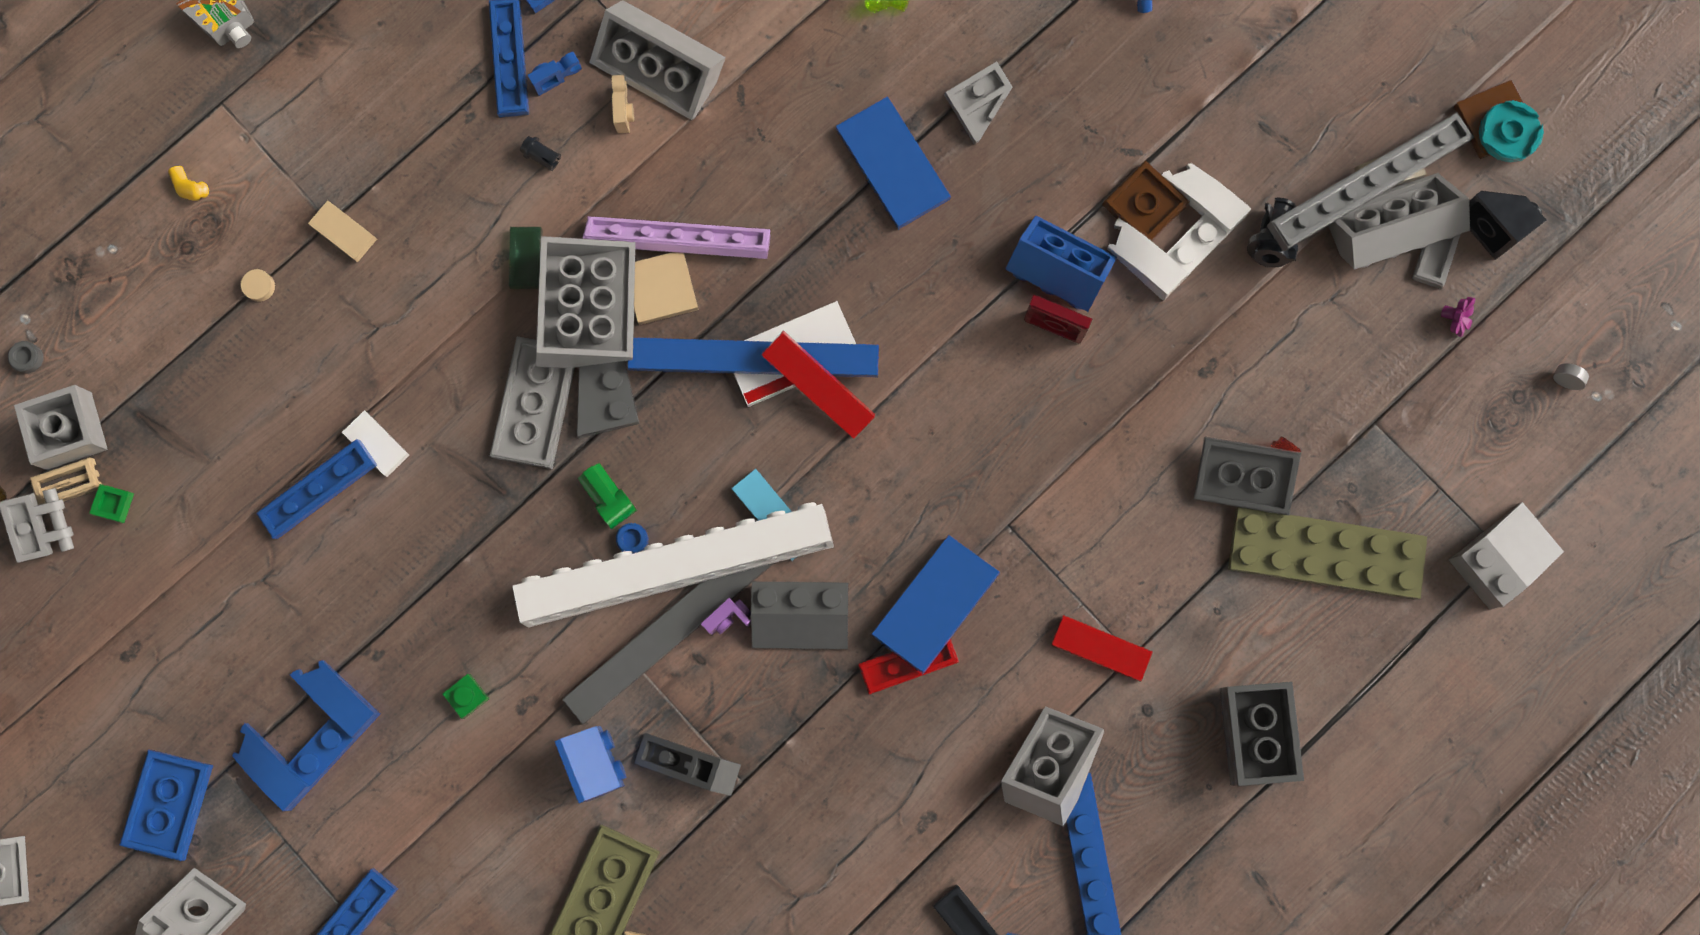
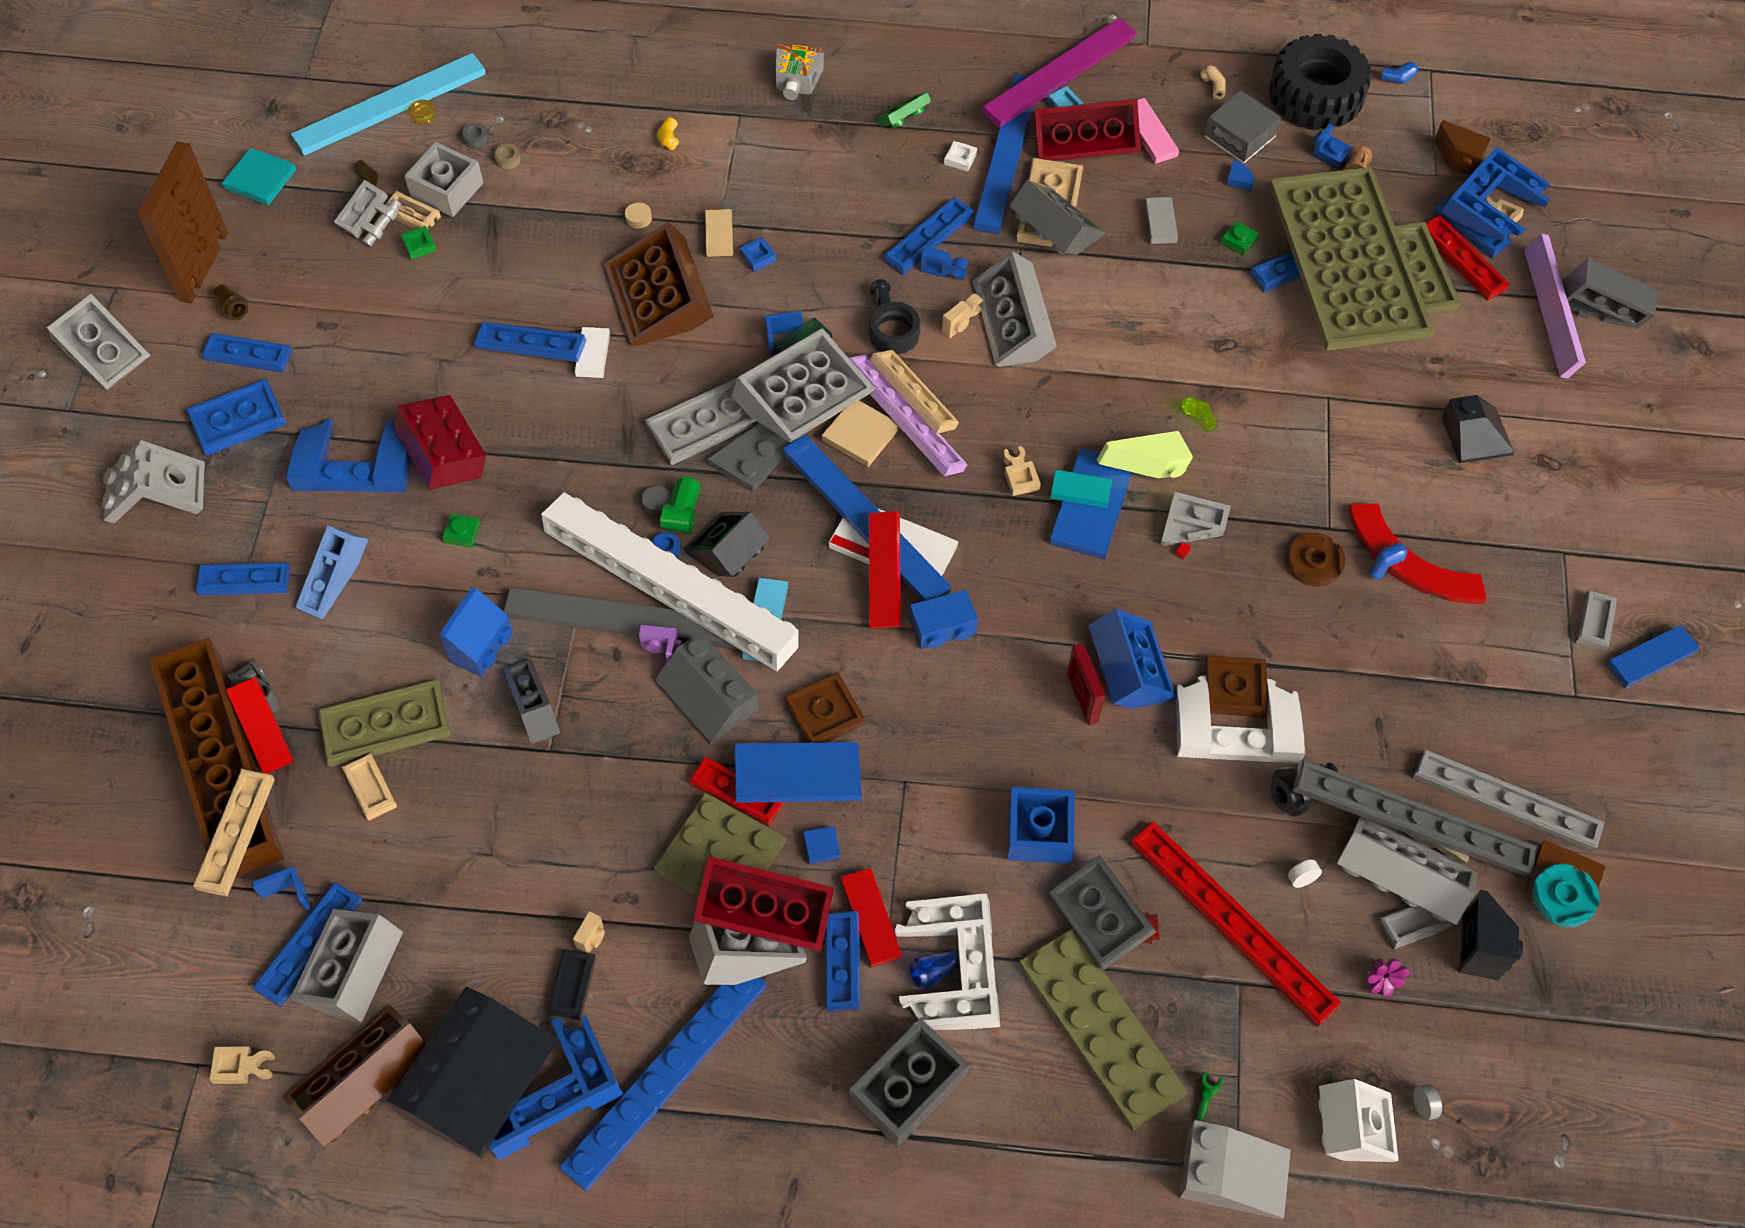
camera: 45 degrees right, 20 degrees down
(29, 722) = (231, 303): none -> dark brown cone
(78, 346) = (507, 156): none -> dark tan tile
(99, 746) = (246, 352): none -> blue tile
(357, 333) = (658, 287): none -> reddish brown slope
(362, 651) = (439, 442): none -> dark red brick
(396, 217) = (758, 254): none -> blue tile
(413, 838) = (331, 570): none -> medium blue slope
(491, 262) = (781, 324): none -> blue bracket
(576, 149) = (894, 311): none -> black tyre
(580, 510) = (655, 499): none -> dark grey tile
(660, 210) = (914, 391): none -> tan tile
(676, 487) = (728, 543): none -> black slope
(819, 197) = (1020, 475): none -> tan plate
(877, 161) = (1081, 489): none -> teal tile
(895, 535) = (825, 710): none -> reddish brown tile
(898, 80) = (1148, 455): none -> yellowish green slope
(900, 375) = (943, 619): none -> blue brick
(940, 876) = (589, 934): none -> tan plate
(952, 720) = (721, 833): none -> olive plate
(996, 132) = (1183, 550): none -> red piece
(1011, 635) = (822, 845): none -> blue tile
(1035, 729) = (762, 903): none -> dark red slope
(1090, 56) = (1311, 573): none -> reddish brown tile
(1121, 700) = (842, 961): none -> blue tile
(1142, 458) = (1041, 825): none -> blue brick
(1183, 638) = (930, 969): none -> clear blue cone
(1237, 627) = (977, 1001): none -> white wedge
(1327, 384) = (1235, 924): none -> red tile
(1338, 298) = (1304, 873): none -> white tile
(1403, 95) = (1509, 800): none -> light grey tile
(1436, 523) = (1207, 1093): none -> green hand
(1546, 439) = (1357, 1122): none -> white slope

